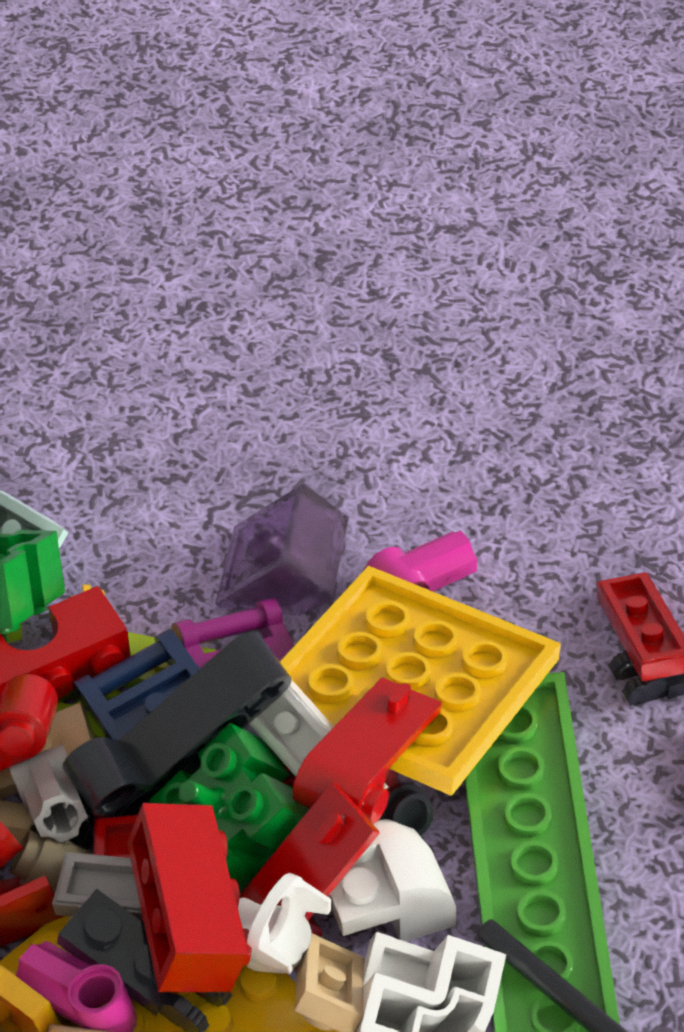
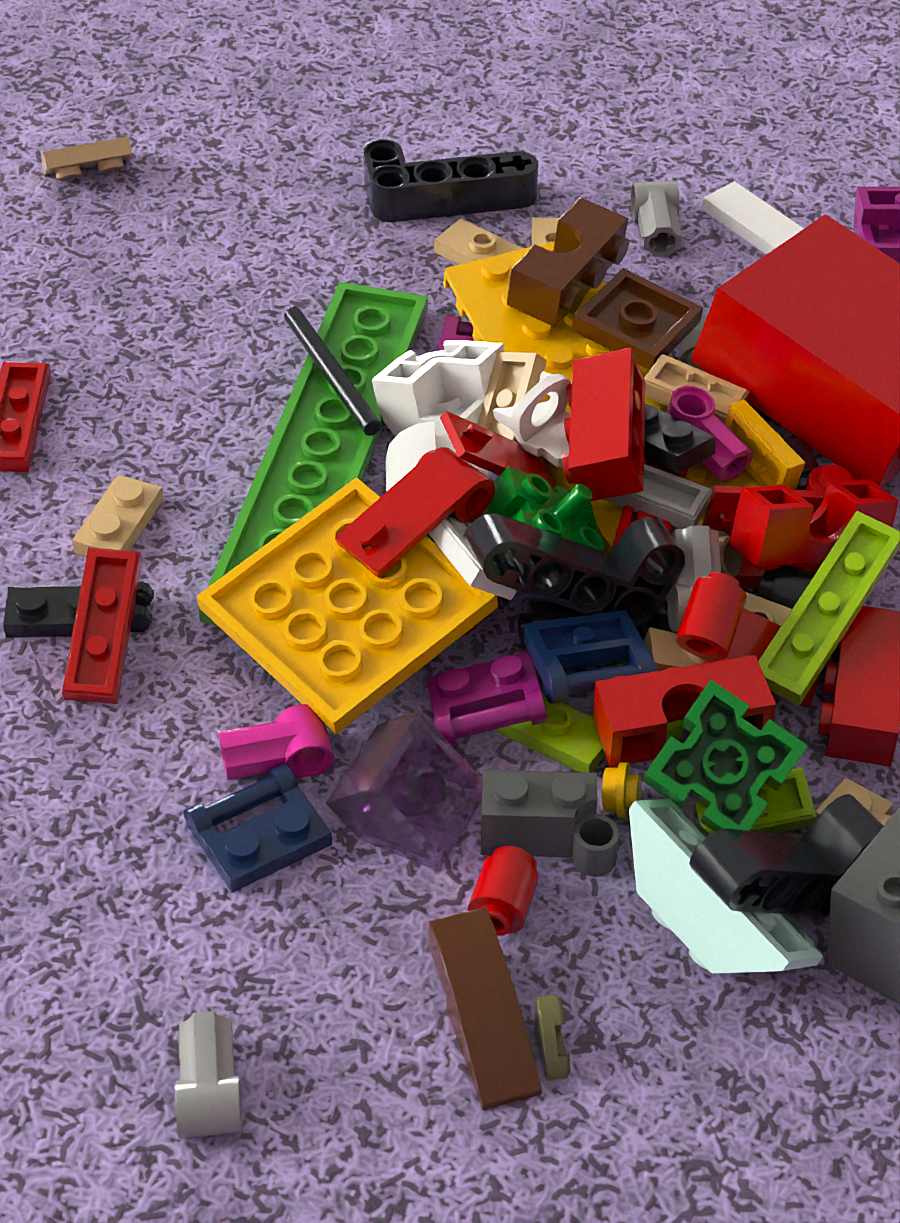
camera: 165 degrees left, 0 degrees up
(100, 416) = (547, 1028): none -> olive tile
(150, 561) = (548, 817): none -> dark grey hinge
(163, 418) = (484, 1008): none -> reddish brown slope
(169, 501) = (506, 888): none -> red brick
(348, 320) = (208, 1089): none -> light grey piece
(398, 500) = (265, 841): none -> dark blue plate

